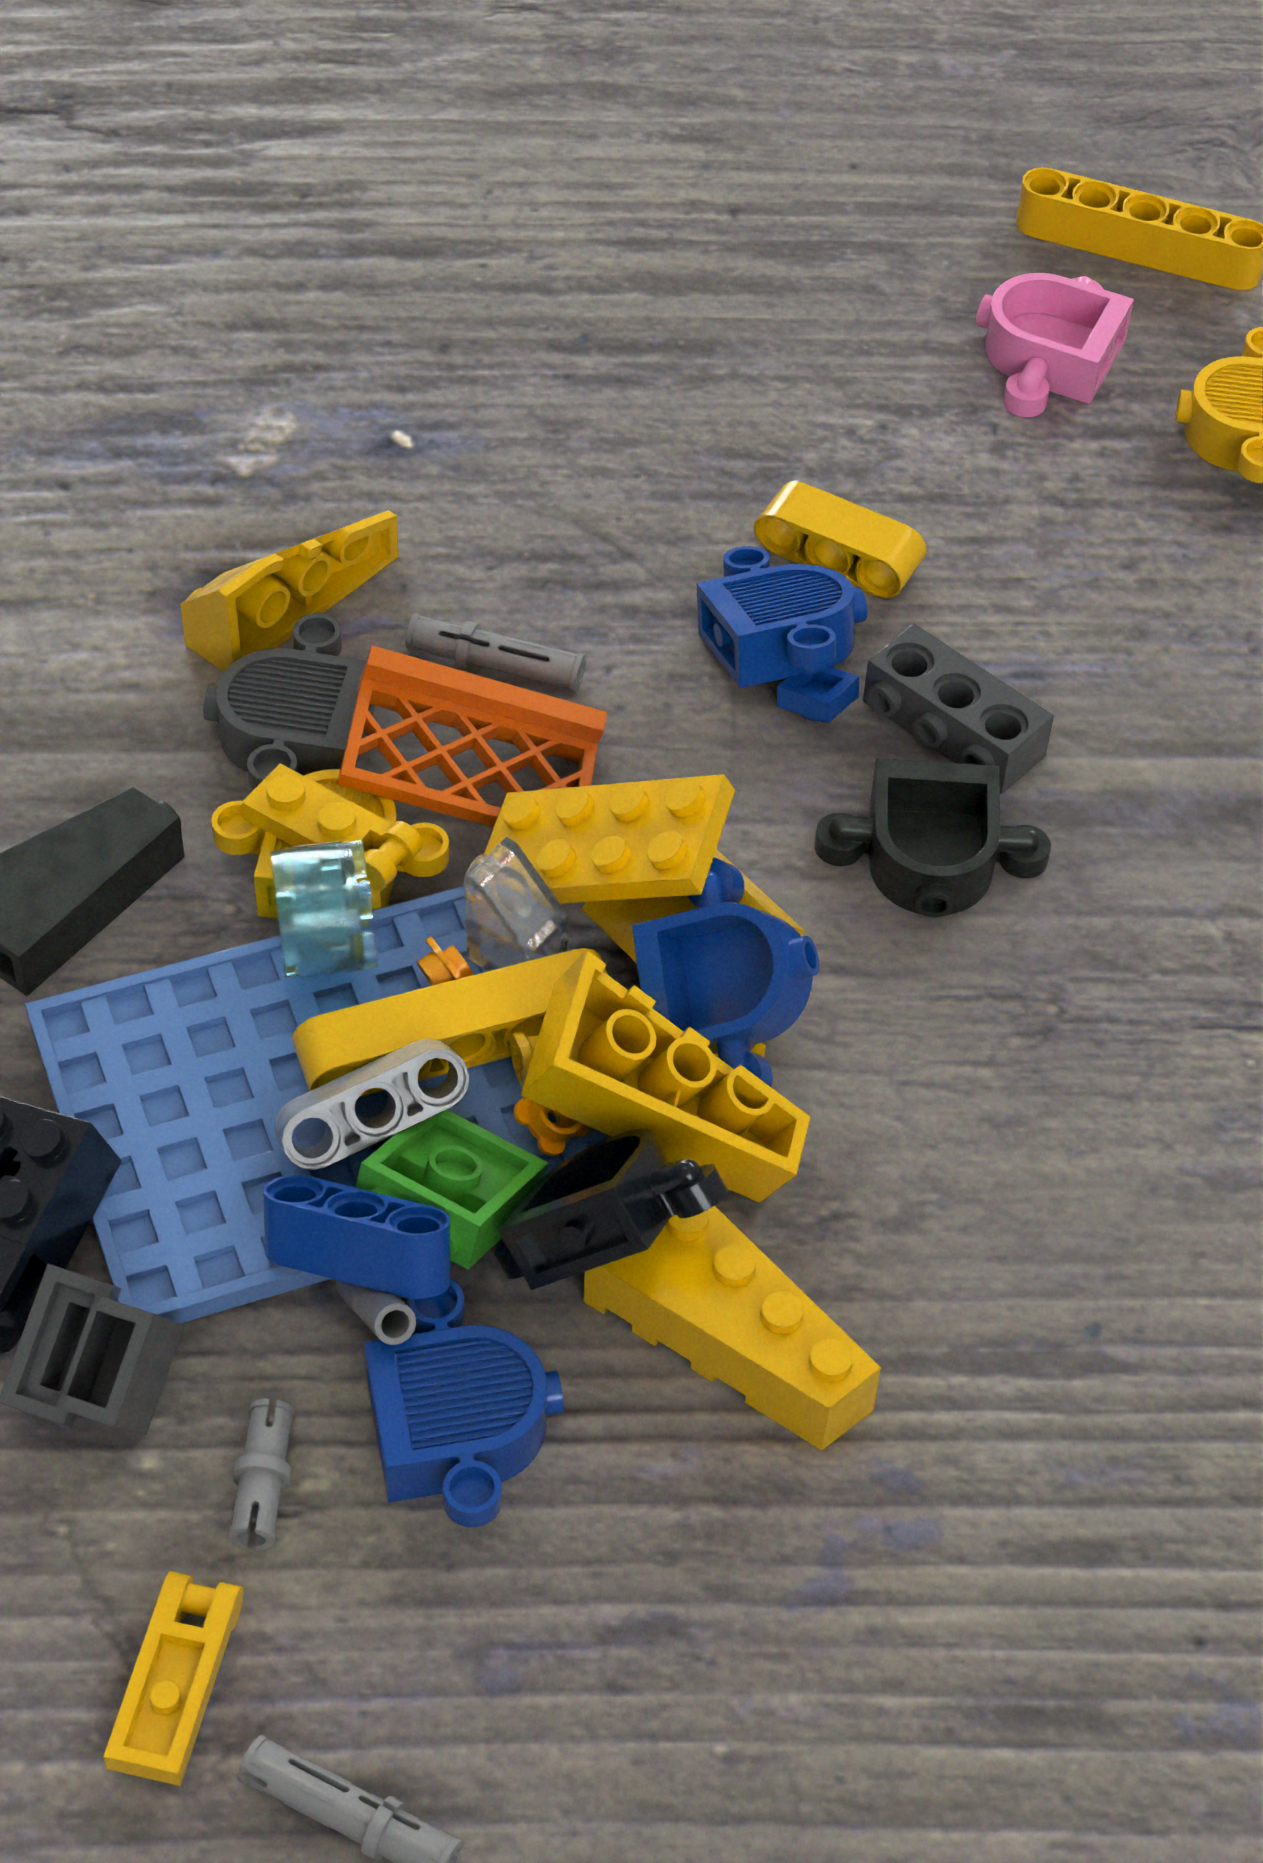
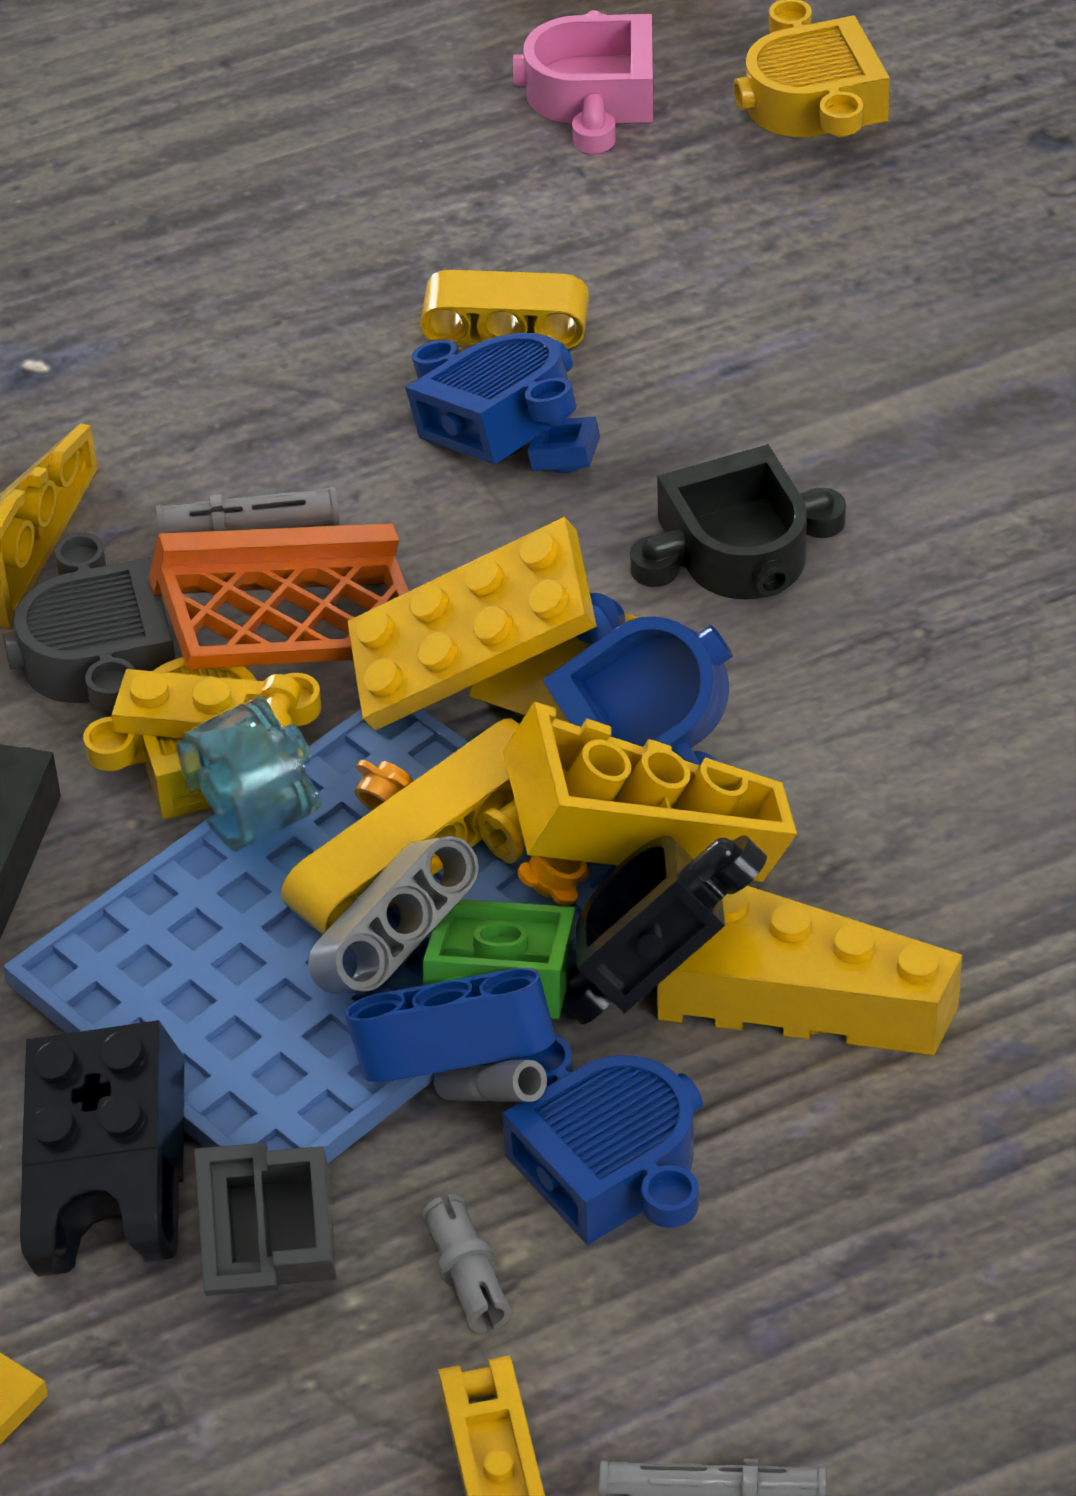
camera: 20 degrees left, 5 degrees down
(510, 910) = (423, 711): clear slope -> none
(956, 706) = (691, 410): dark grey brick -> none

